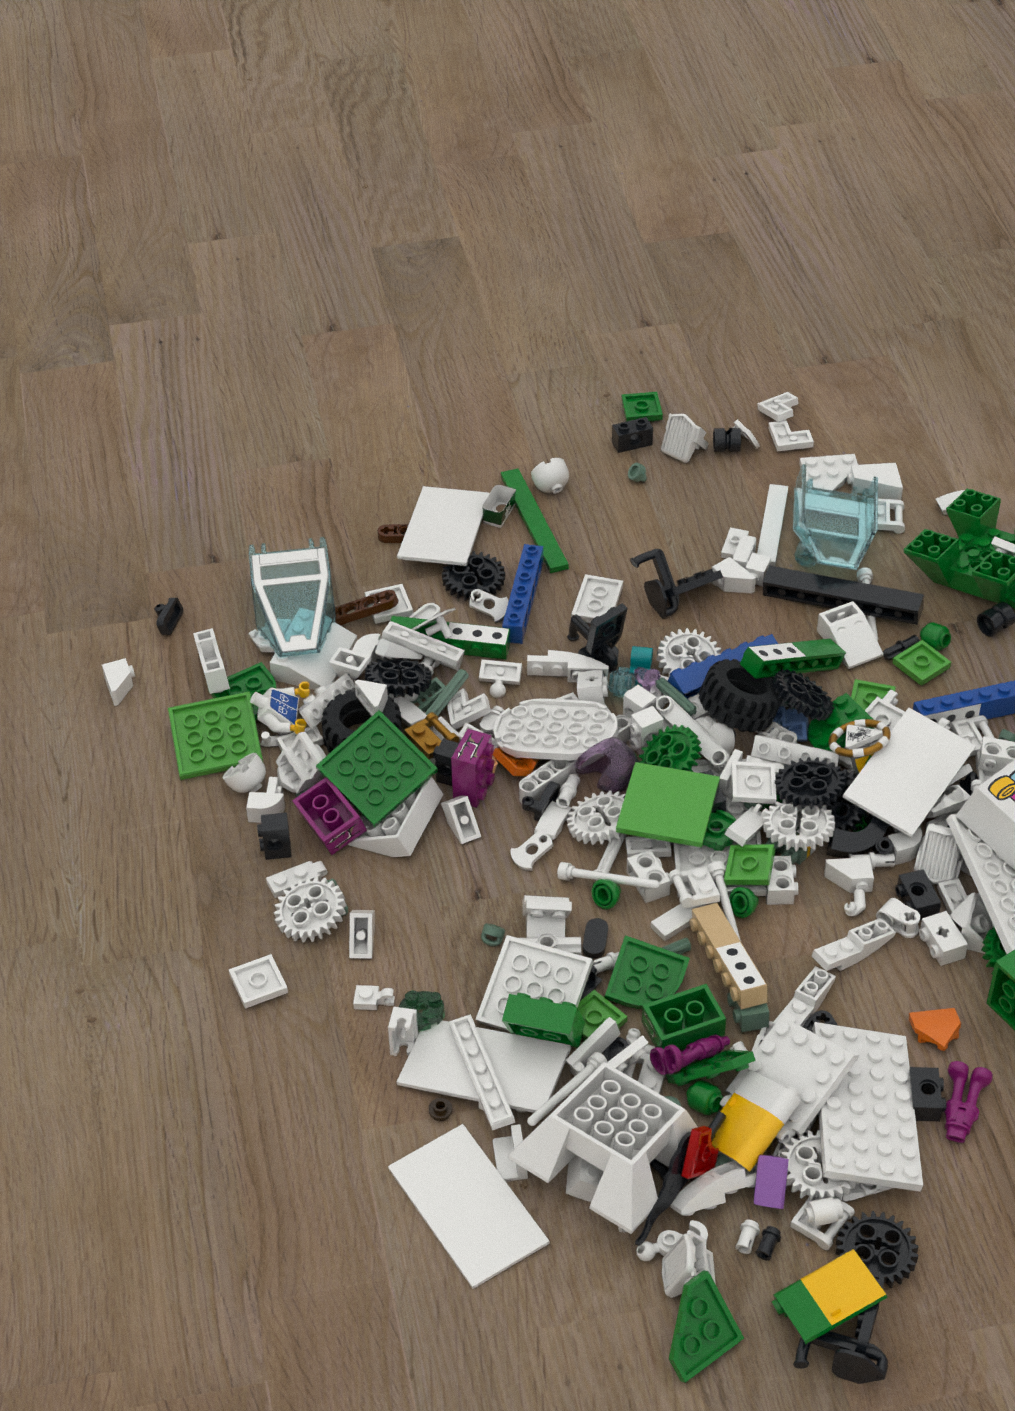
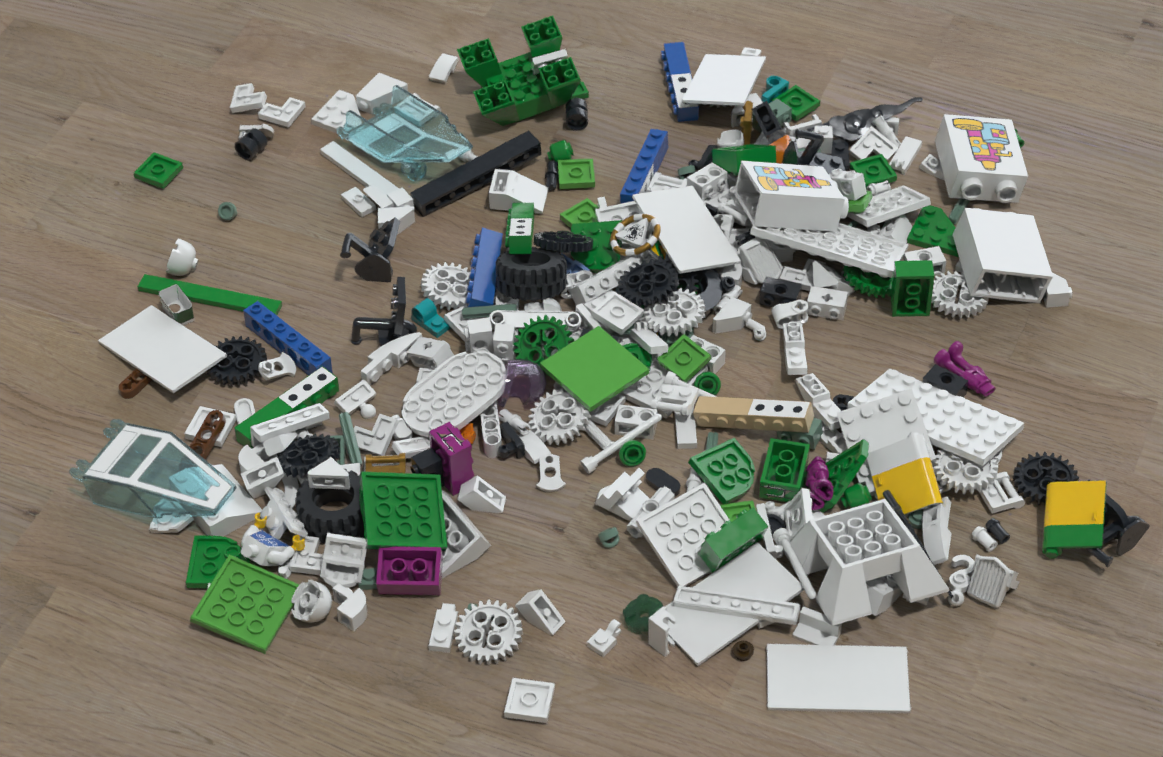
camera: 55 degrees left, 0 degrees up
(118, 679) = (114, 640): white slope -> none
(168, 615) = (68, 567): black piece -> none
(211, 661) = (148, 561): white arch -> none
(275, 835) = (400, 614): black brick -> none
(440, 625) = (278, 400): white shield -> none
(596, 597) = (337, 305): white plate -> none
(621, 681) = (440, 331): clear light blue head -> none
(632, 435) = (185, 191): black brick -> none
(647, 677) = (454, 317): clear purple rock -> none
(682, 437) = (225, 164): white piece -> none
(700, 1154) = (914, 518): red tile -> none
(702, 1328) = (1046, 596): green plate -> none
(771, 1181) = (959, 497): medium lavender slope -> none
(823, 1211) = (1003, 484): white brick -> none
(936, 1026) = (893, 348): orange slope -> none

